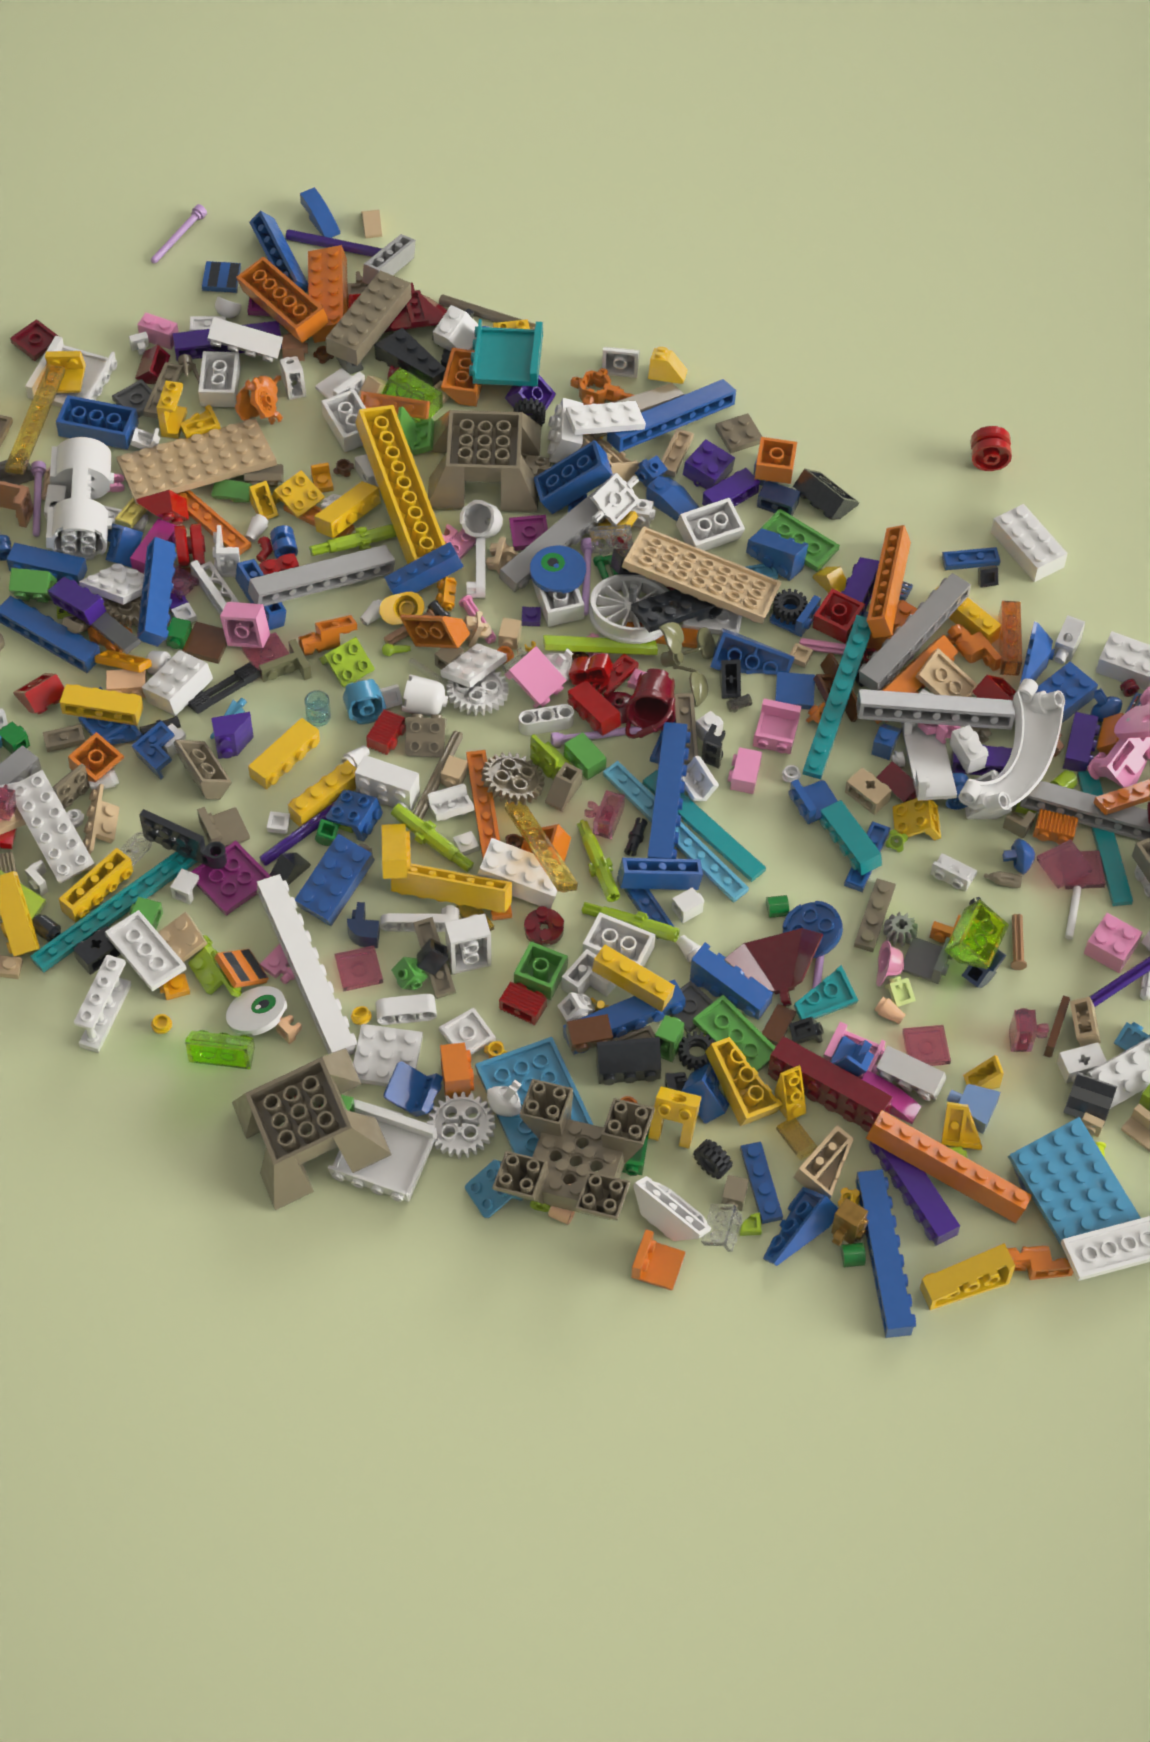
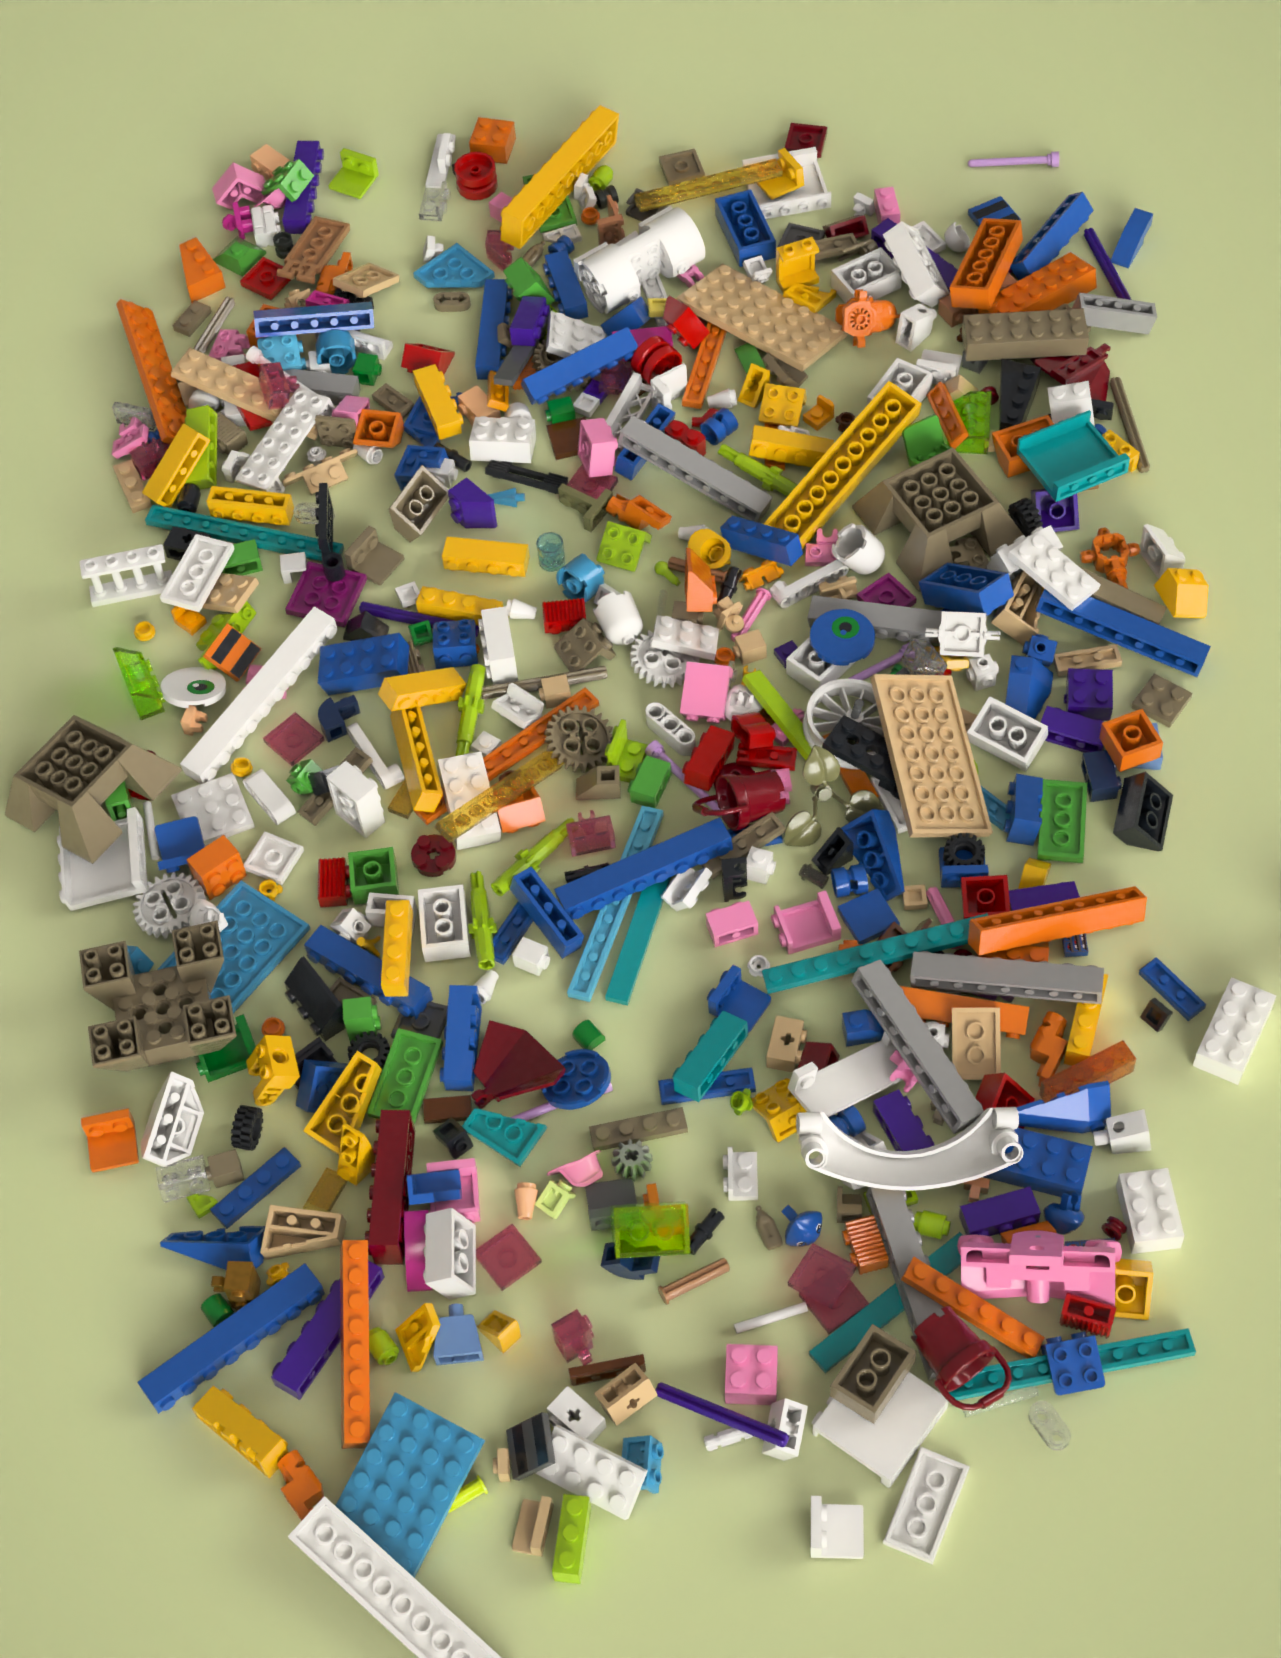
camera: 65 degrees right, 0 degrees up
(56, 766) = (351, 407): none -> bright pink brick
(371, 223) = (1160, 280): tan slope -> none
(587, 1032) = (317, 947): reddish brown brick -> none
(761, 682) = (849, 880): none -> blue wheel
(898, 758) = (846, 1050): white plate -> none
(968, 749) = (891, 1103): white brick -> none

